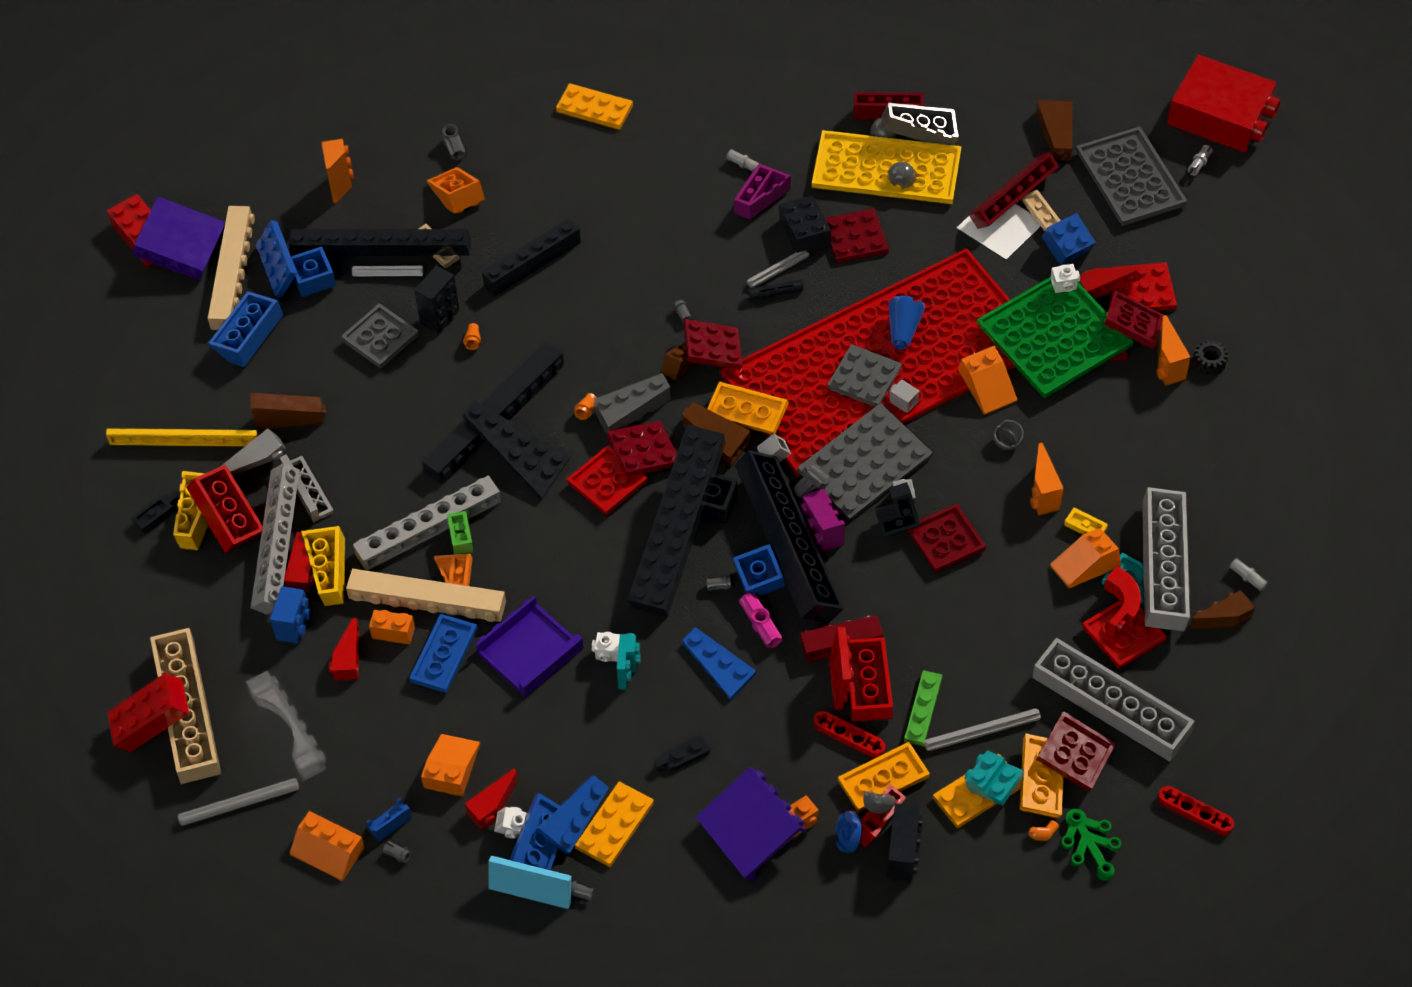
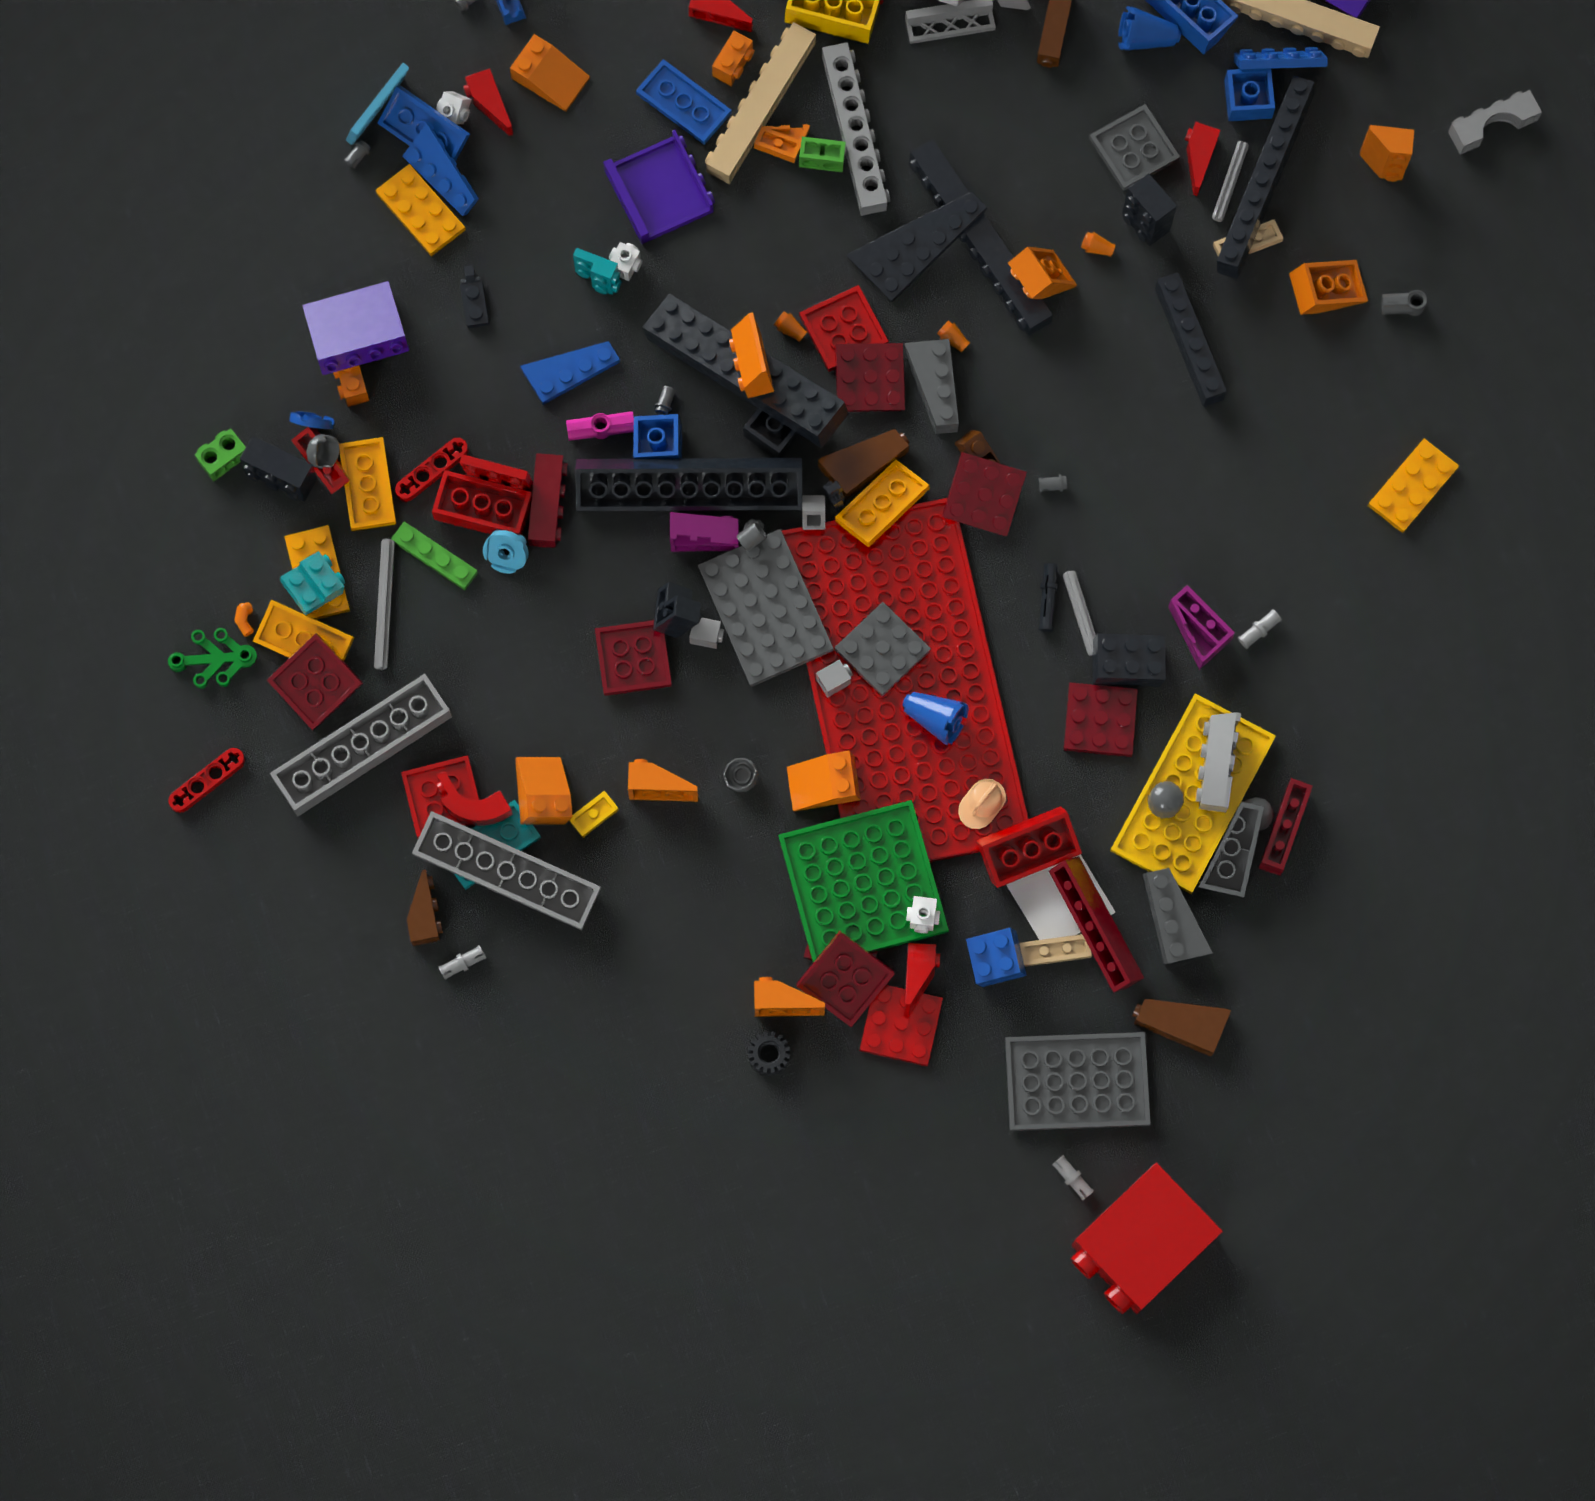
camera: 105 degrees right, 20 degrees up
(277, 353) = (1146, 31): none -> blue cone
(297, 138) = (1518, 111): none -> light grey arch
(370, 292) = (1199, 150): none -> red slope
(516, 354) = (1041, 273): none -> orange slope
(619, 517) = (789, 326): none -> orange cone
(674, 496) = (750, 358): none -> orange slope
(757, 433) = (835, 495): none -> black hinge
(860, 148) = (1218, 762): none -> light grey wedge
(899, 648) = (505, 540): none -> medium azure plate
(910, 895) = (225, 458): none -> bright green brick
(955, 282) = (982, 803): none -> light nougat piece
(977, 240) = (1029, 847): none -> red brick
(988, 148) = (1174, 921): none -> dark grey wedge

